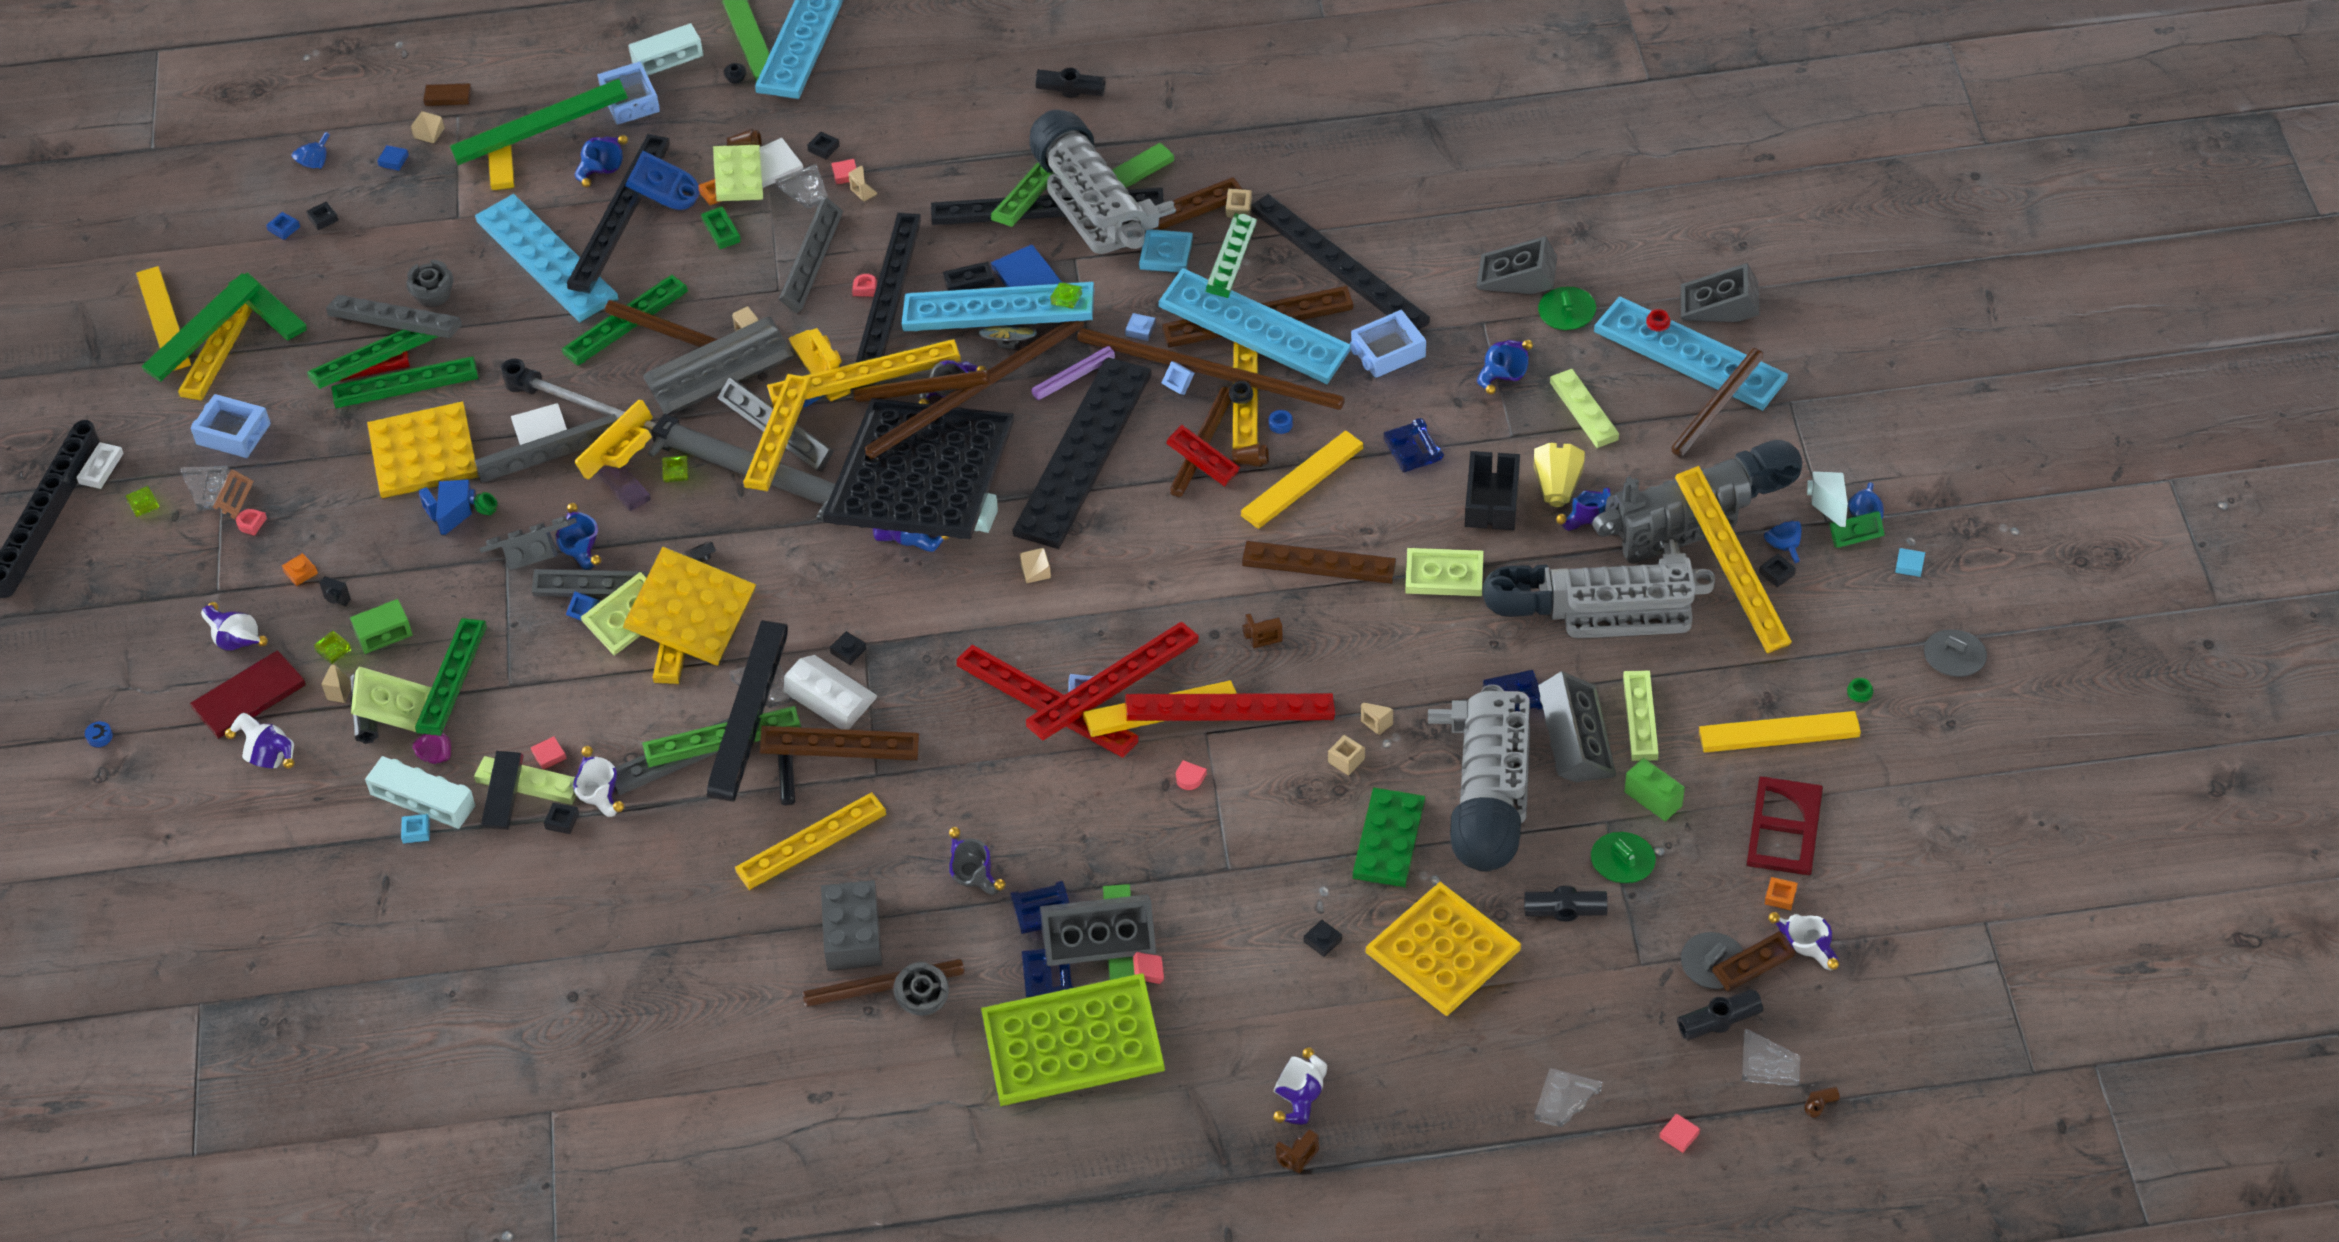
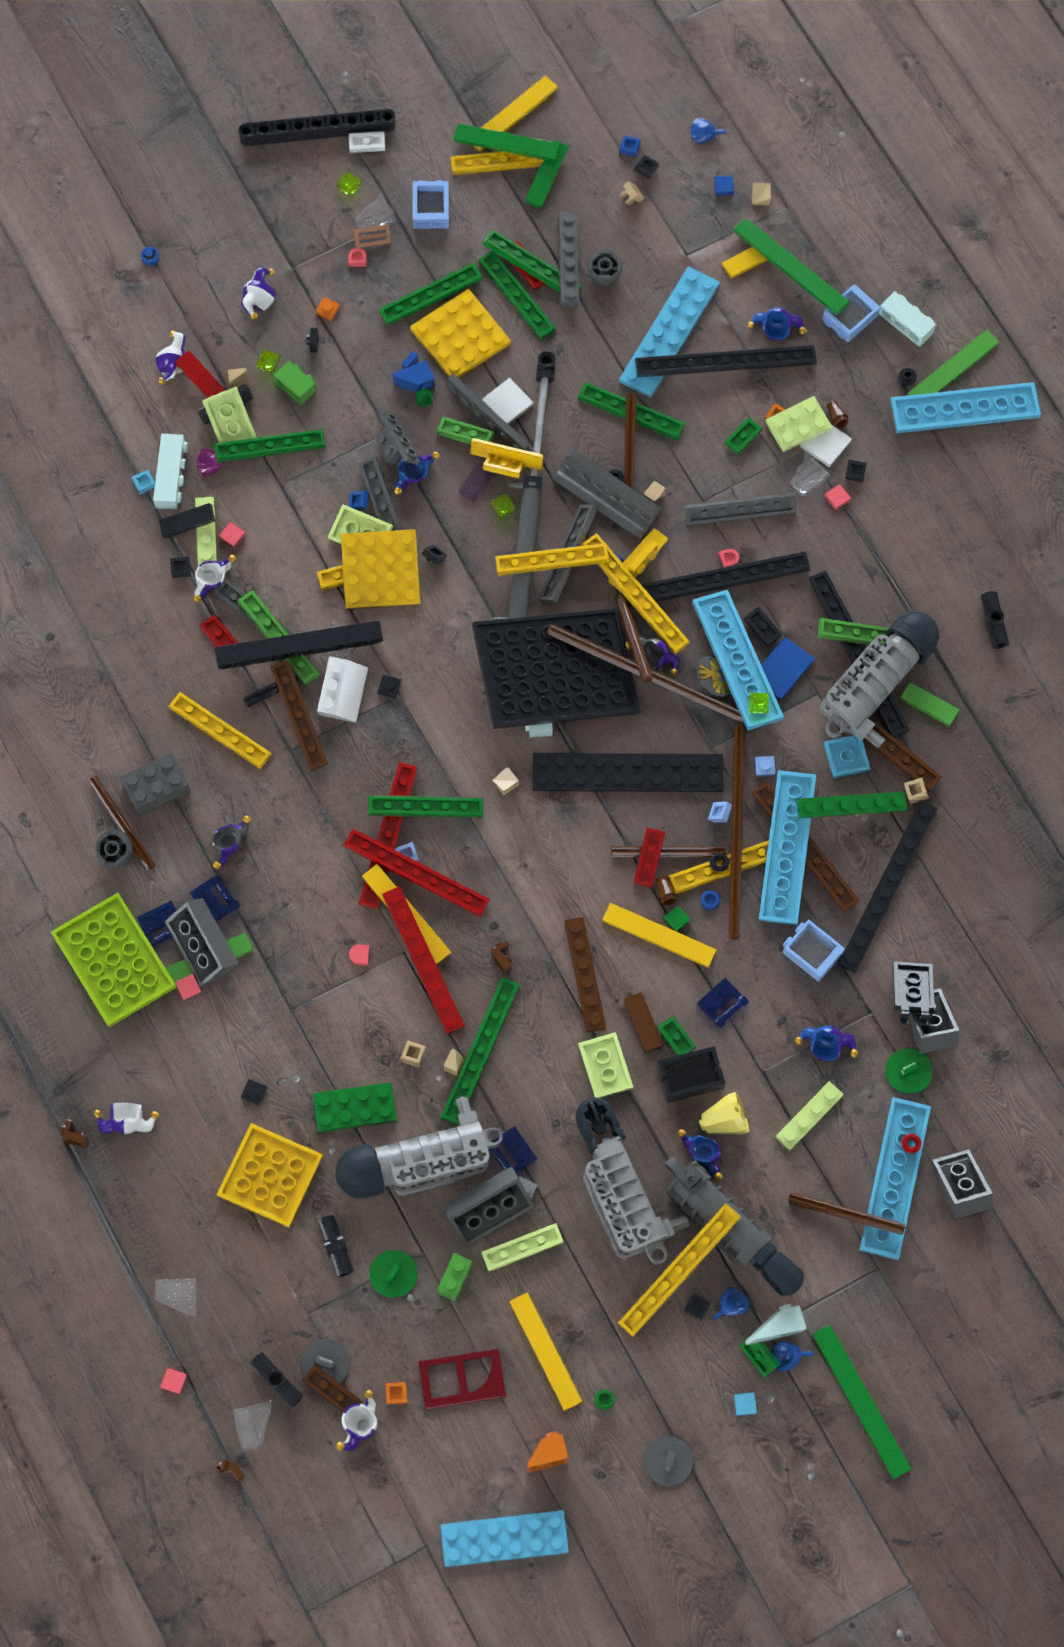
camera: 65 degrees right, 20 degrees up
(248, 693) = (214, 328): dark red tile -> none
(310, 718) = (199, 375): none -> red tile
(347, 234) = (633, 192): none -> tan tile
(349, 461) = (430, 294): none -> green plate
(447, 94) = (802, 191): reddish brown tile -> none
(553, 480) = (462, 431): none -> bright green tile
(663, 182) = (764, 376): blue plate -> none
(683, 805) = (217, 632): none -> red tile
(859, 186) = (826, 514): tan slope -> none
(1029, 651) = (425, 806): none -> green tile
(1072, 373) = (699, 736): medium lavender axle -> none
(1289, 457) = (676, 919): none -> green tile
(1370, 689) = (481, 1048): none -> green tile
(1404, 524) = (643, 1022): none -> reddish brown tile
(1438, 496) = (676, 1036): none -> green plate
(1479, 268) = (913, 990): none -> tile
(1912, 752) = (548, 1453): none -> orange slope
(1942, 459) = (861, 1402): none -> green tile
(2001, 839) = (504, 1538): none -> medium azure plate

